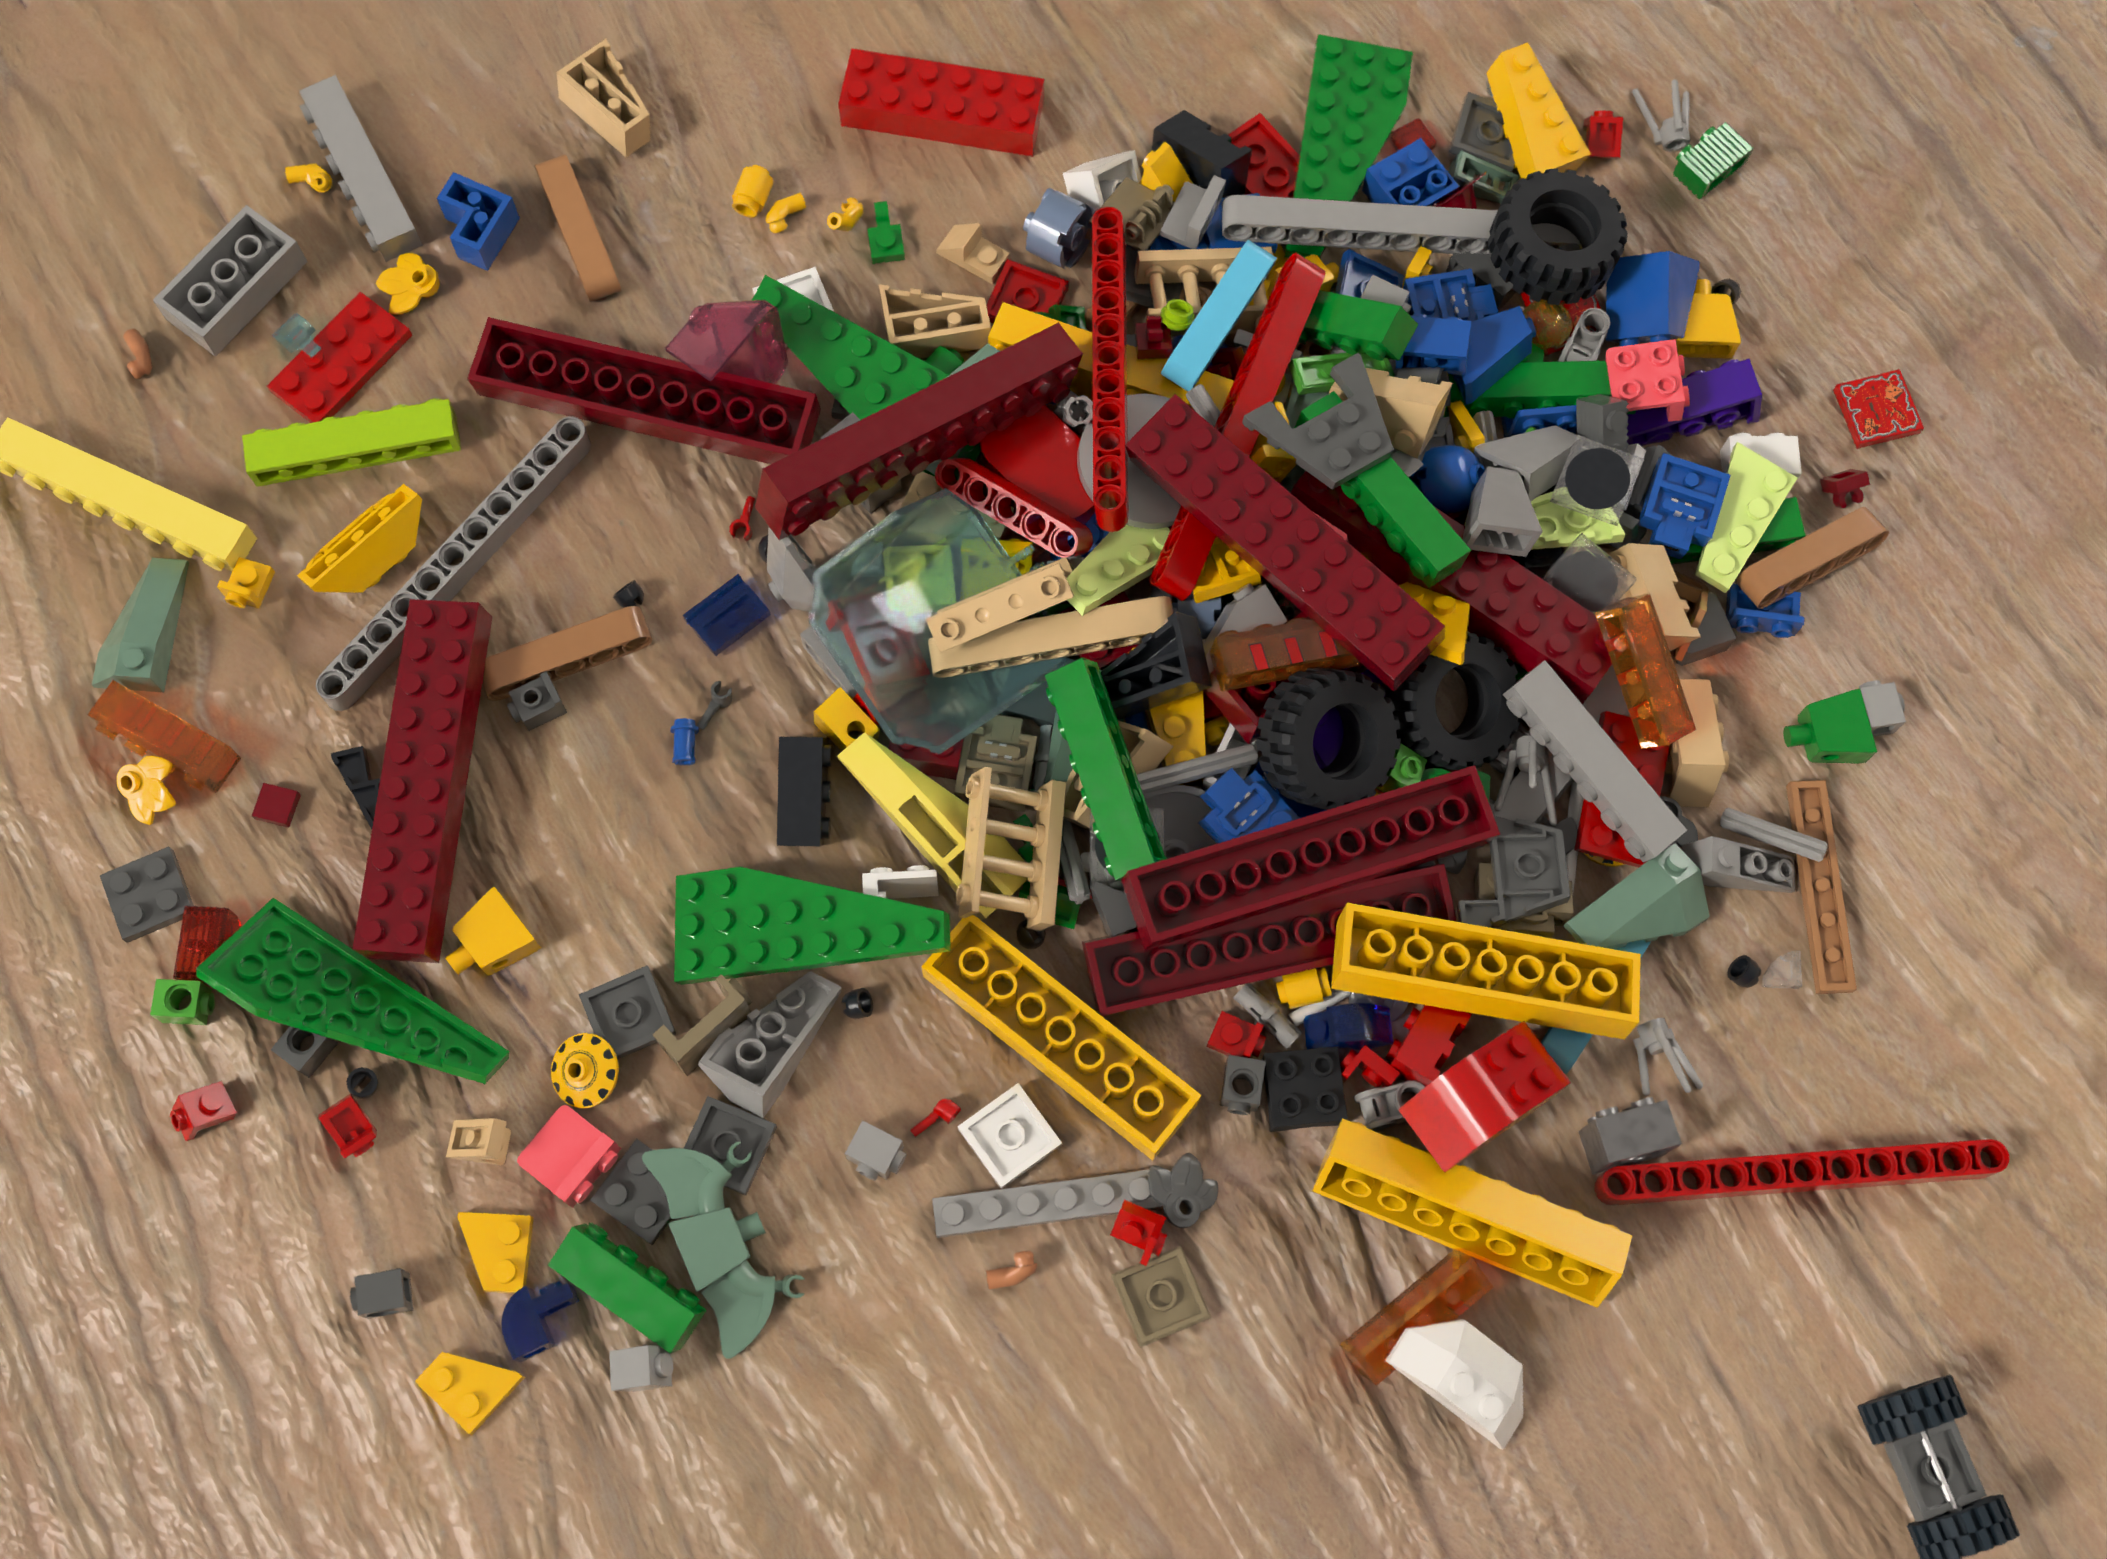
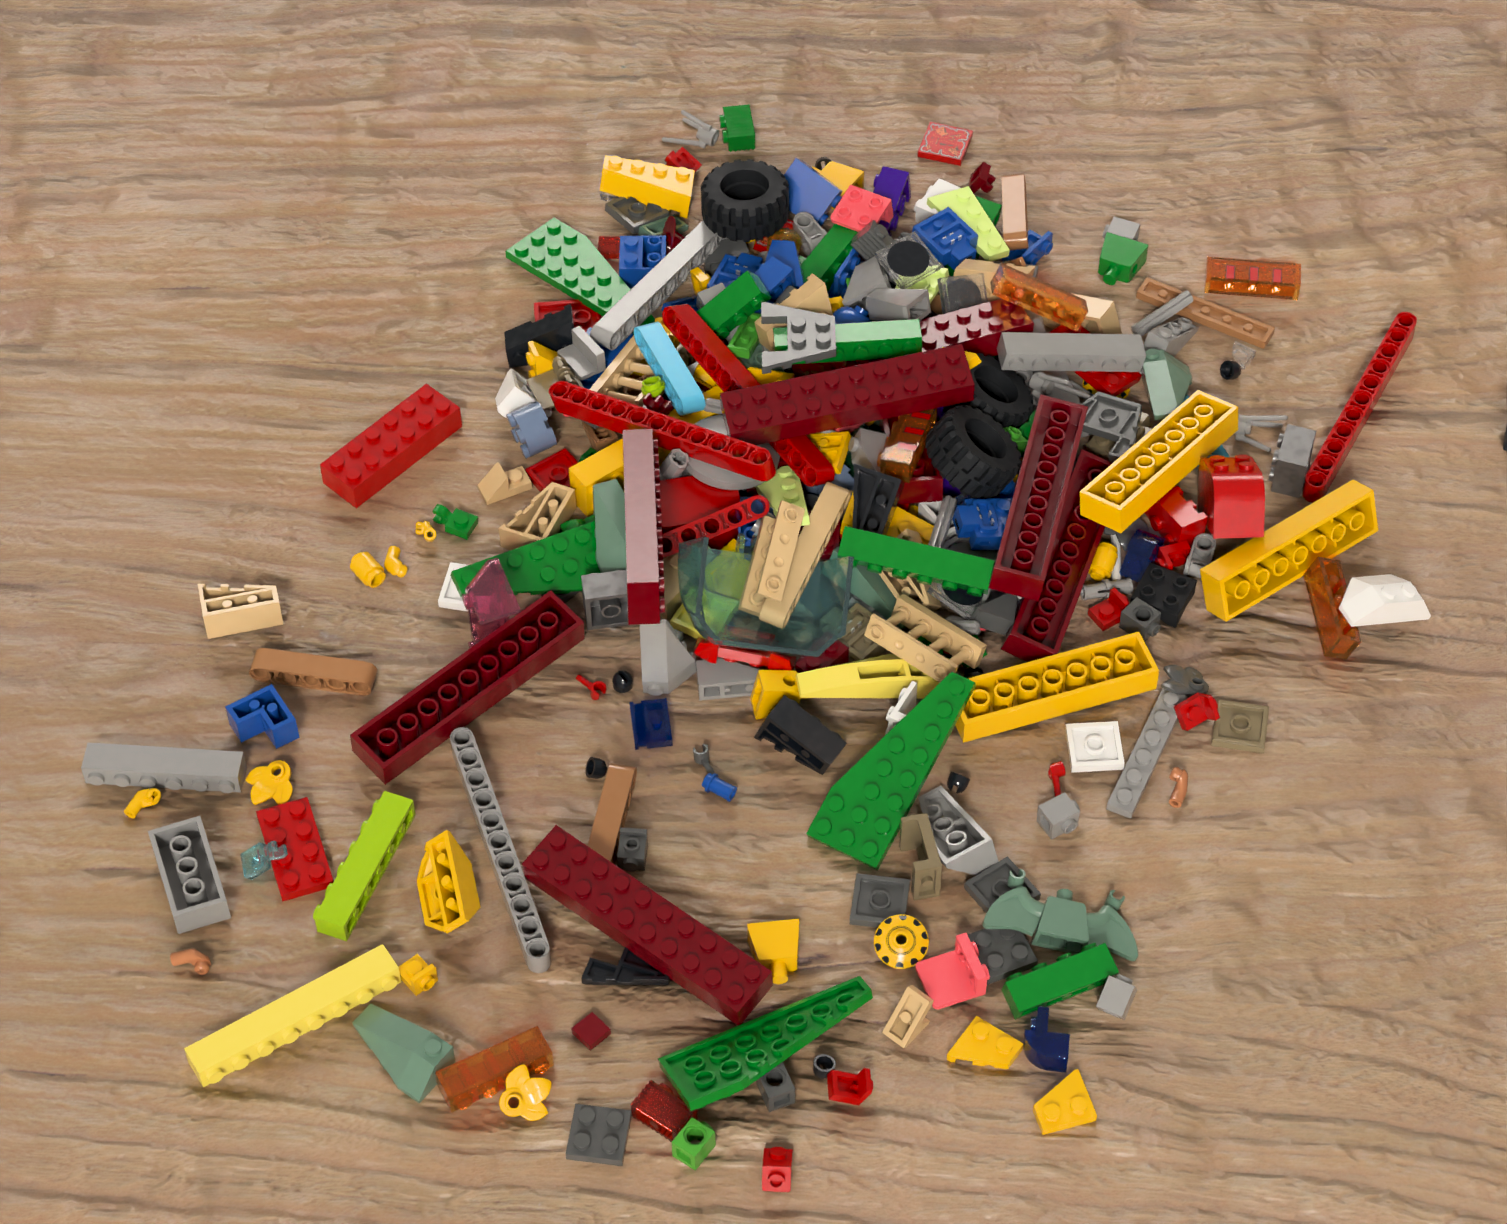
camera: 55 degrees left, 20 degrees down
(382, 1293) = (974, 1118): dark grey brick -> none
(1927, 913) = (1252, 278): none -> clear orange brick

